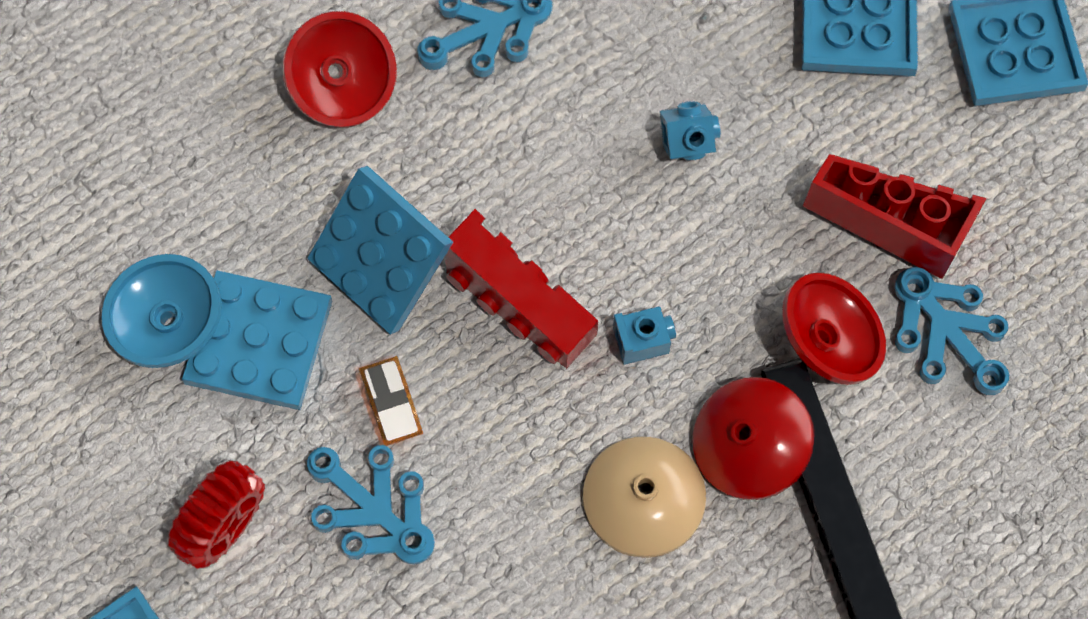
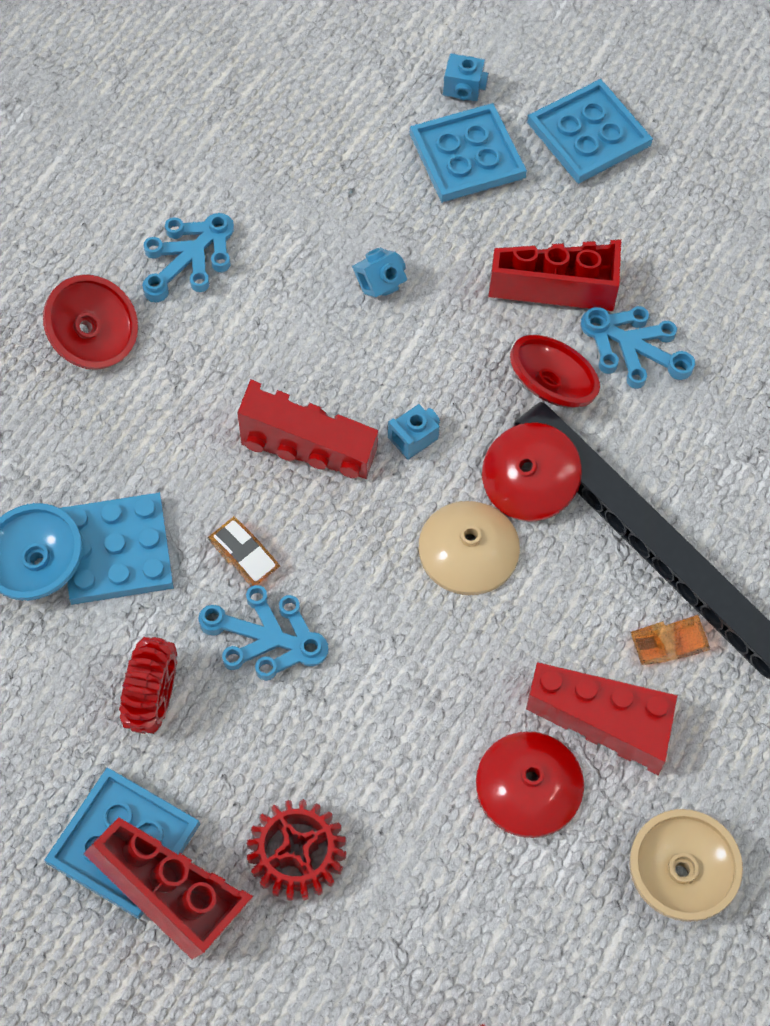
camera: 25 degrees left, 5 degrees down
(379, 249) = (186, 440): dark azure plate -> none

